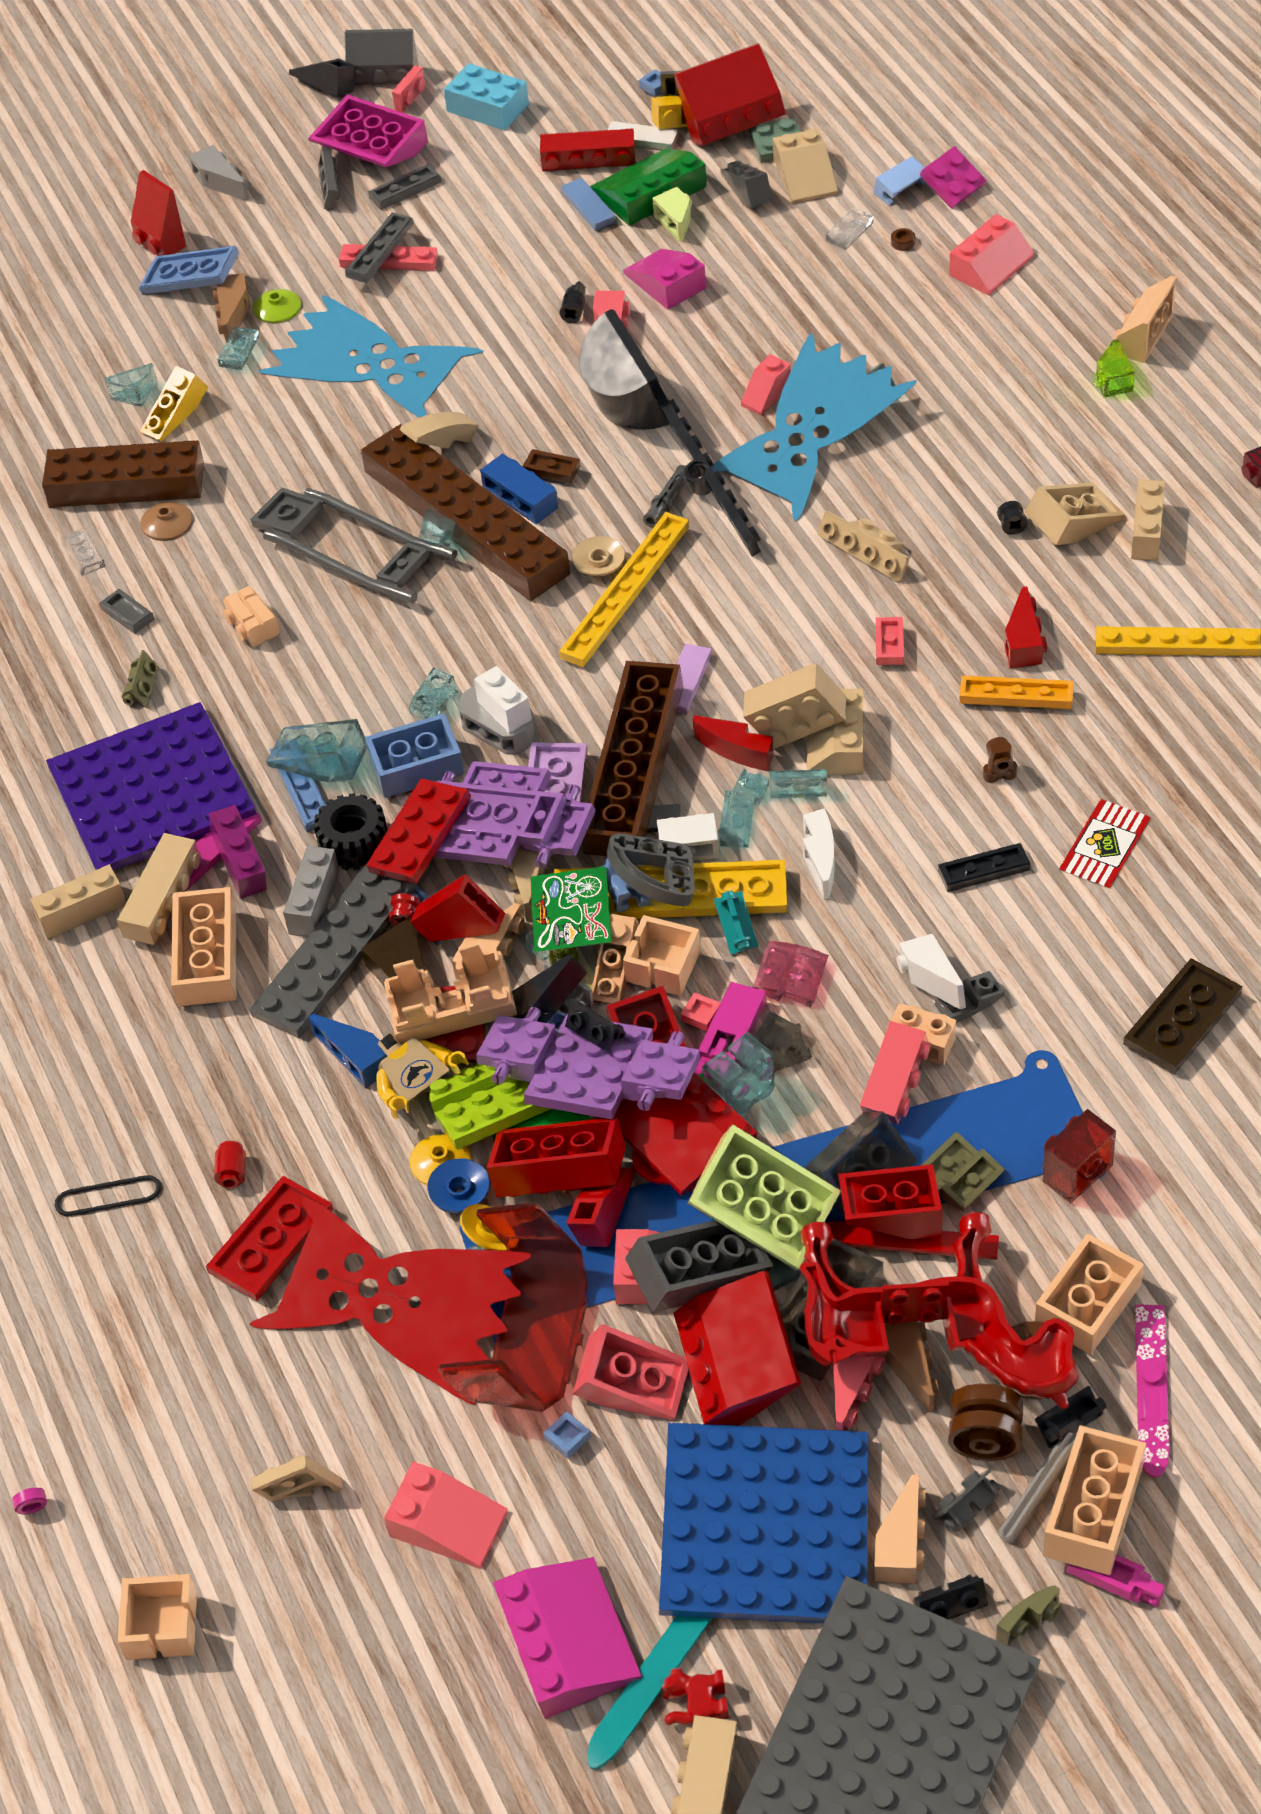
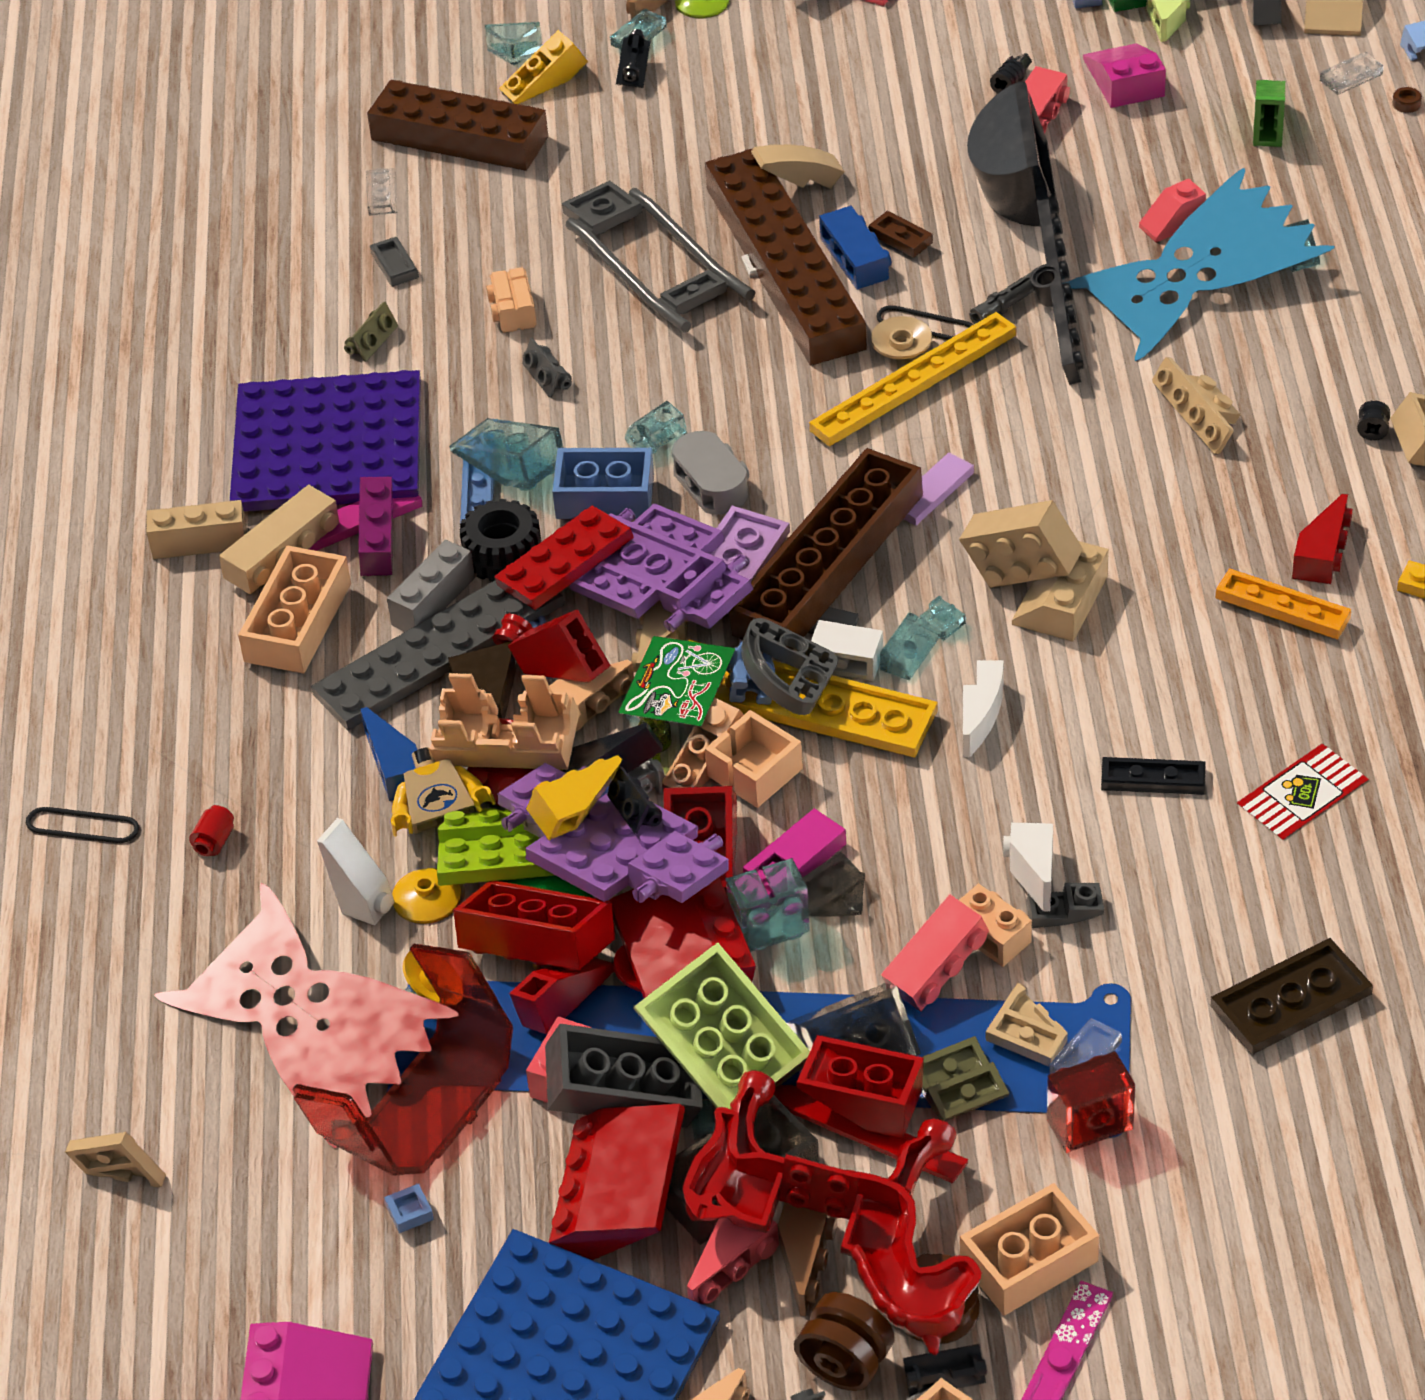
camera: 20 degrees right, 5 degrees down
(166, 521) = (480, 184): medium nougat dish -> none
(247, 375) = (633, 60): none -> black hinge
(266, 1240) = (209, 916): red plate -> none
(308, 669) = (545, 368): none -> dark grey hinge
(325, 356) = (726, 65): dark azure piece -> none
(383, 1165) = (354, 875): none -> white slope
(436, 528) = (742, 262): clear light blue panel -> none
(444, 1516) = (243, 1244): coral slope -> none
(458, 1175) = (425, 922): blue dish -> none
(502, 699) = (716, 450): white brick -> none
(545, 1043) = (565, 802): none -> yellow slope
(606, 530) = (925, 314): none -> black piece
(630, 1374) = (503, 1170): coral slope -> none
(699, 1011) = (766, 828): coral plate -> none
(734, 742) = (948, 567): red slope -> none
(735, 922) = (851, 749): teal hinge -> none
(790, 972) = (885, 819): clear pink slope -> none
(798, 783) = (993, 629): clear light blue plate -> none
(802, 278) = (1269, 113): none -> bright green slope
(889, 641) = (1170, 511): coral plate -> none
(993, 1111) = (1027, 1028): none -> tan wing
(1000, 761) = (1224, 669): reddish brown plate -> none
(1047, 1114) = (1090, 1041): none -> clear plate

